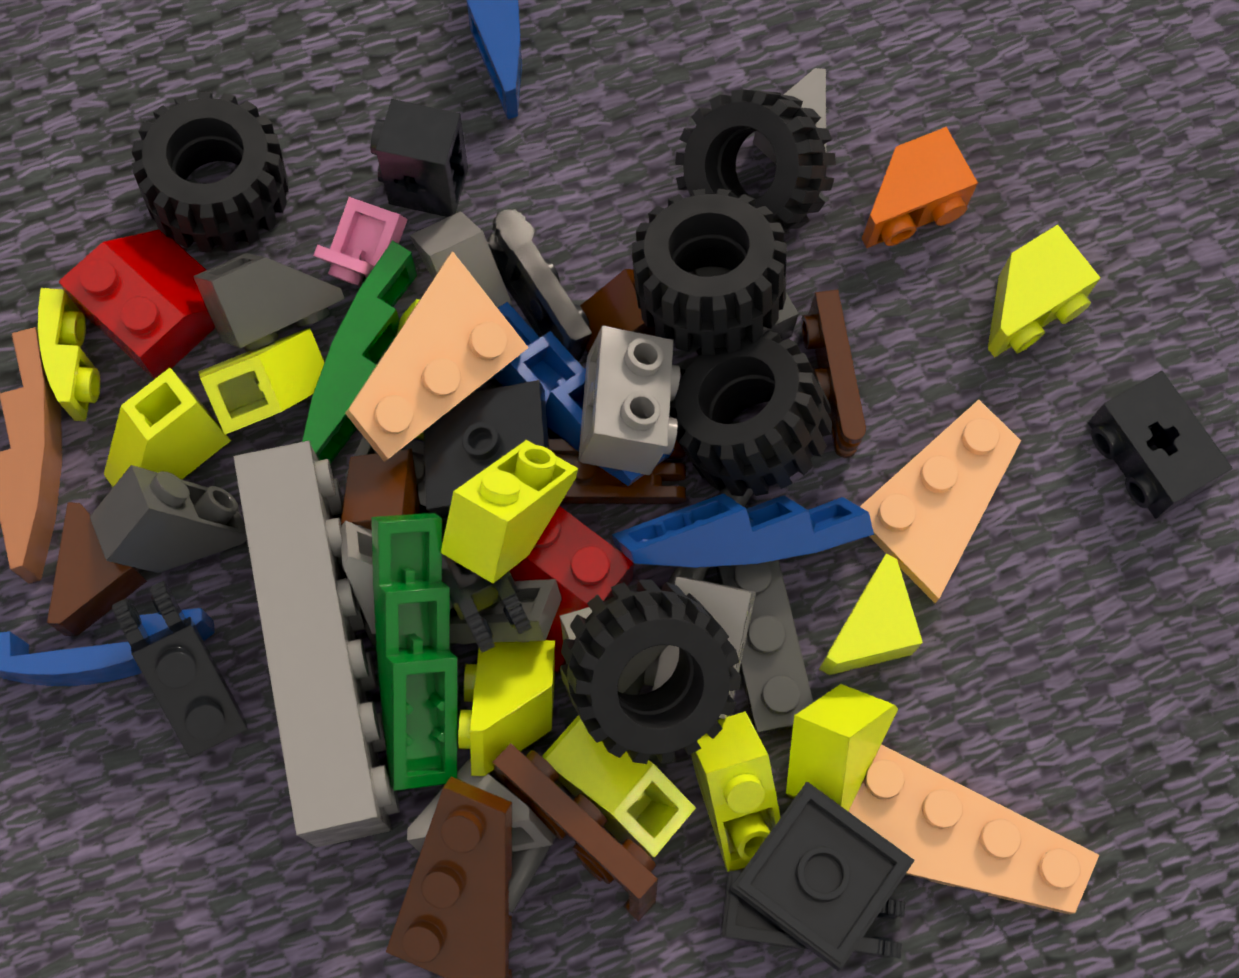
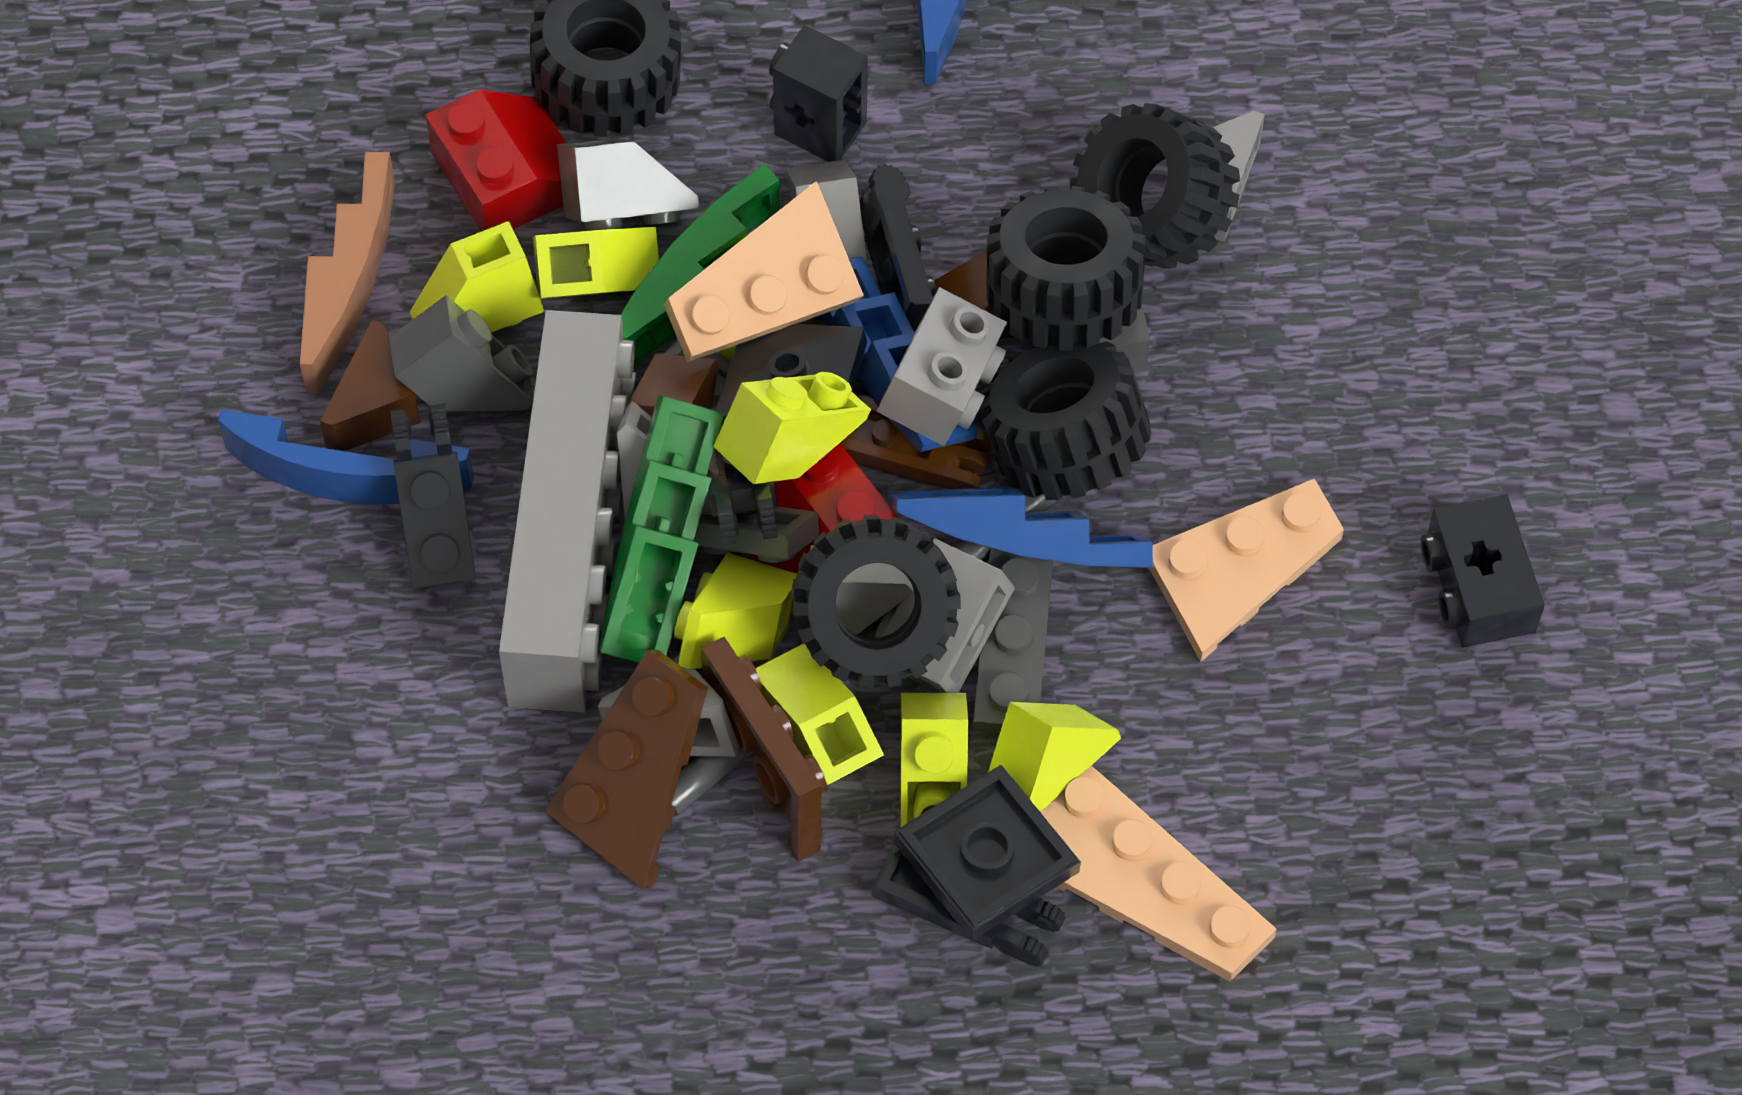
camera: 20 degrees right, 10 degrees down
(66, 366) = (407, 191): neon yellow slope -> none
(360, 240) = (732, 157): bright pink bracket -> none
(827, 334) = (1168, 418): reddish brown hinge -> none
(879, 626) = (1123, 657): neon yellow slope -> none
(922, 185) = (1323, 258): orange slope -> none
(1037, 286) = (1414, 389): neon yellow slope -> none

